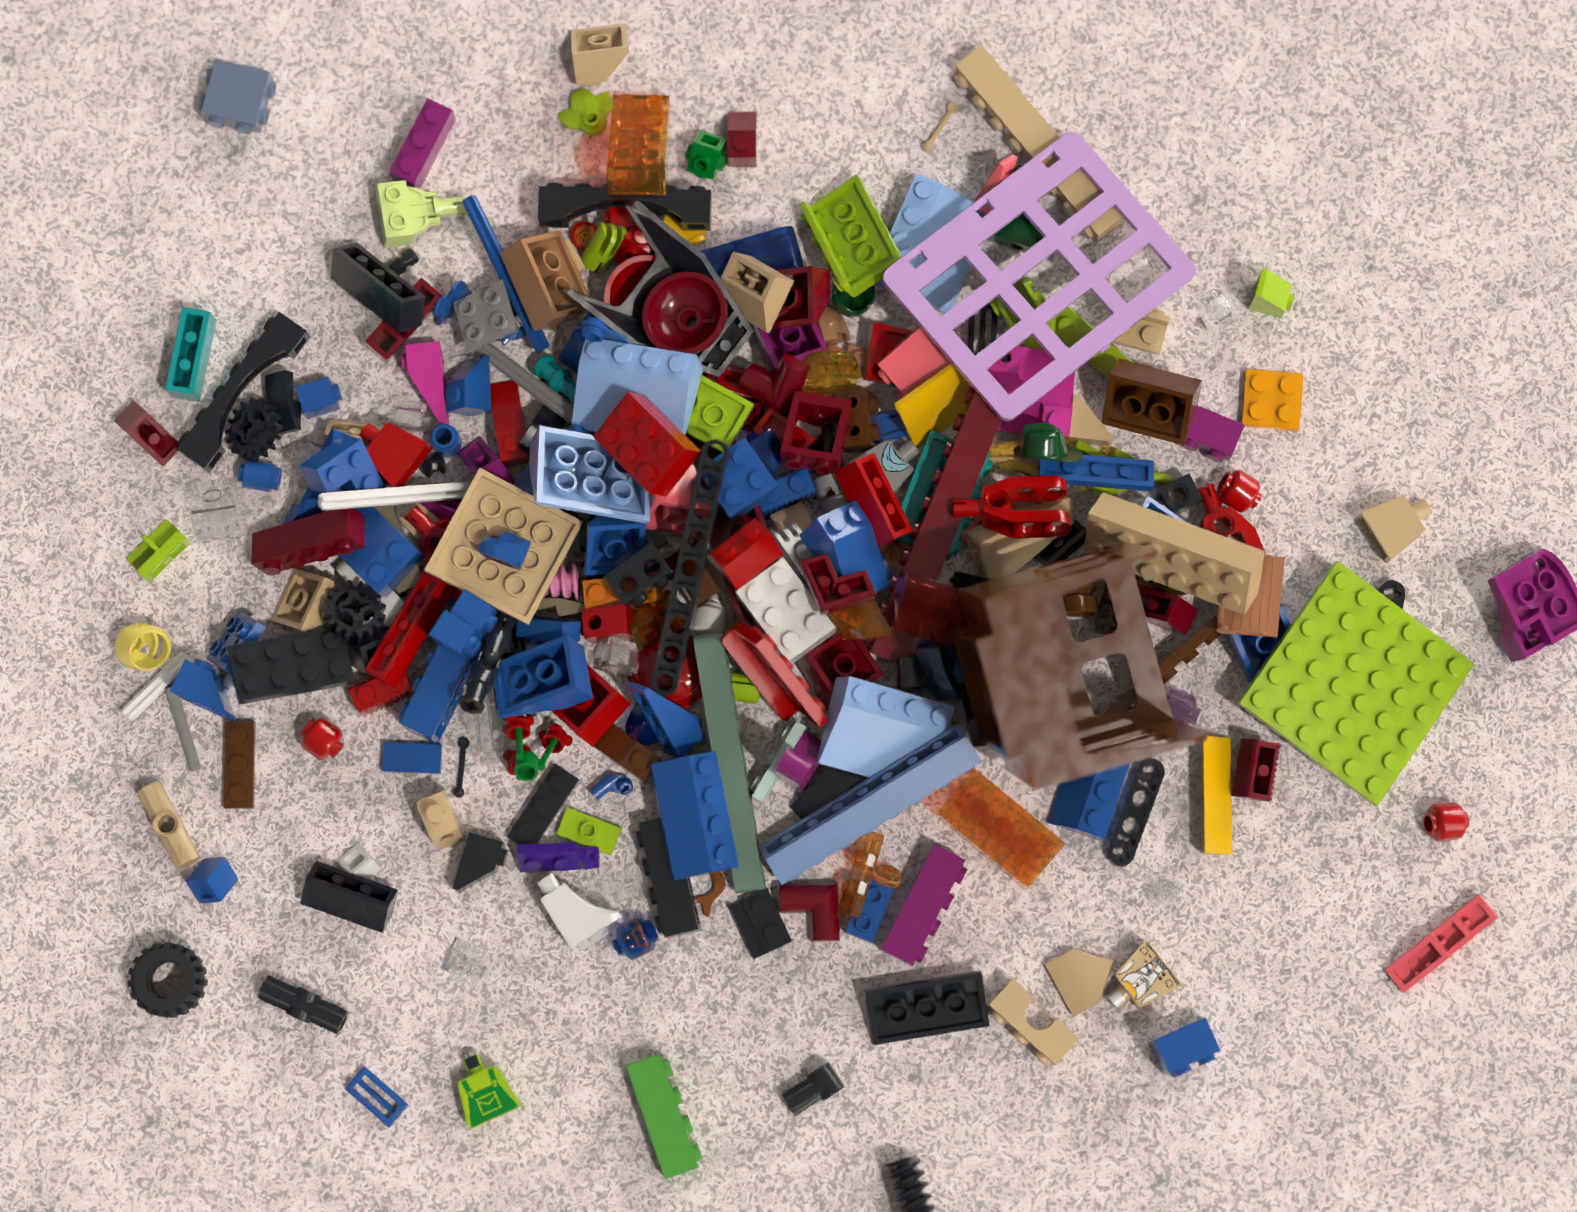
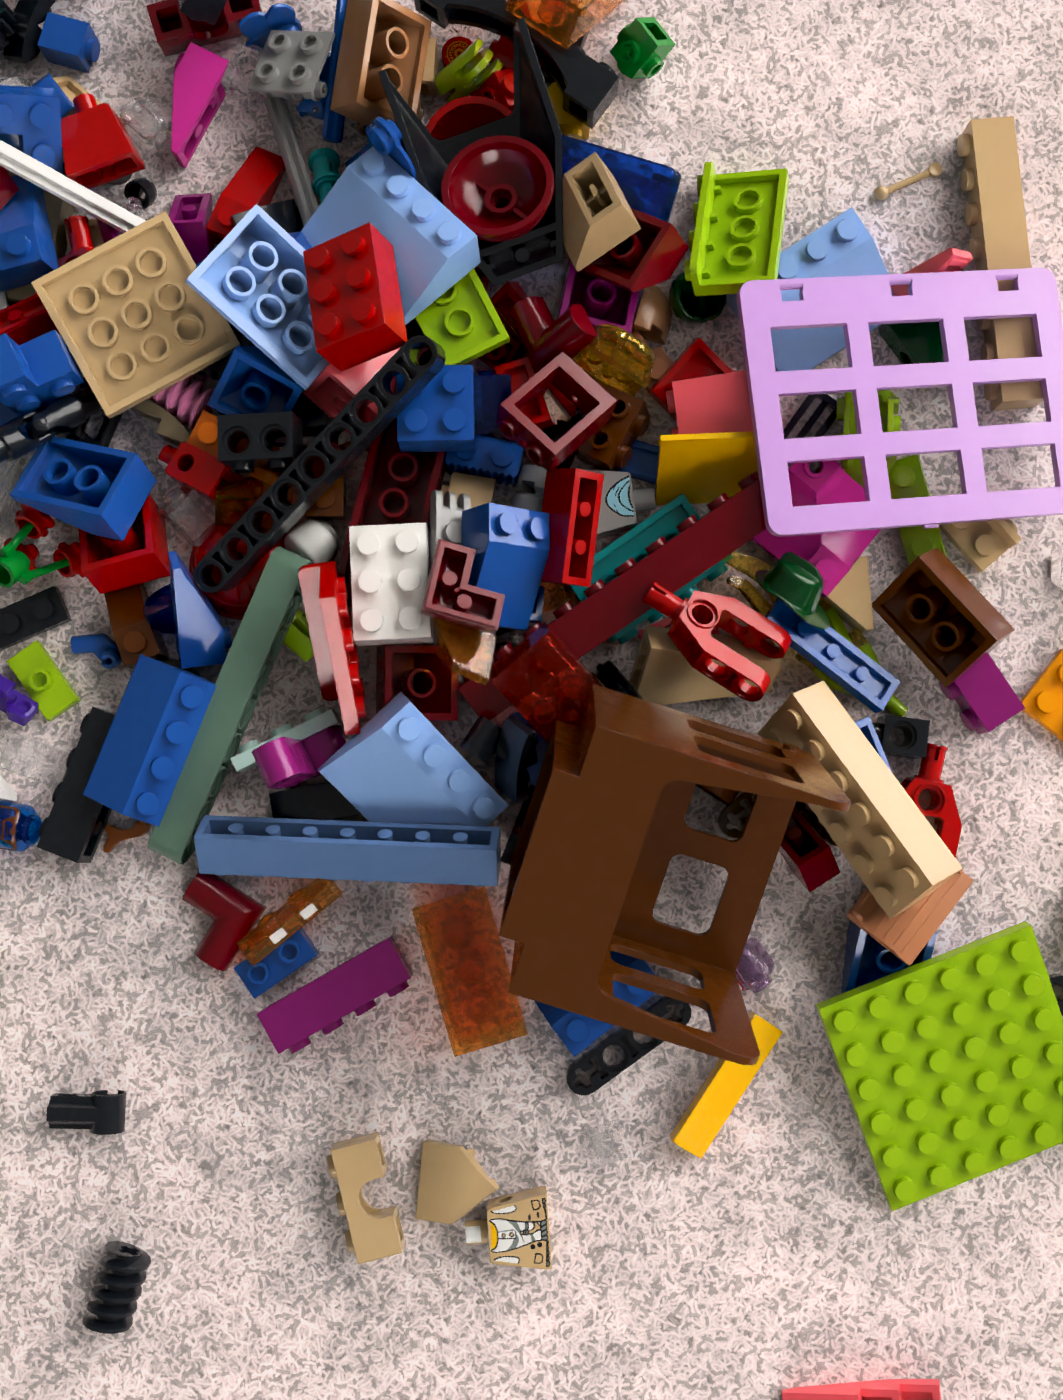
camera: 25 degrees right, 5 degrees up
(444, 432) = (167, 171): blue brick -> none
(469, 388) = (228, 134): blue slope -> none
(505, 549) = (130, 317): blue rock -> none
(547, 629) = (135, 435): blue piece -> none
(742, 139) = (689, 59): dark red slope -> none
(745, 554) = (386, 492): red slope -> none
(760, 923) = (155, 897): black plate -> none
(887, 875) = (319, 936): clear orange tile -> none
(927, 1007) = (266, 1105): black slope -> none
(1062, 547) = (737, 711): black plate -> none
(1184, 653) = (795, 910): reddish brown plate -> none
(1184, 1047) = (508, 1334): blue brick -> none
(1239, 491) = (970, 774): red head -> none
(1255, 770) = (787, 1088): dark red brick -> none
(1445, 821) = (955, 1279): red head -> none

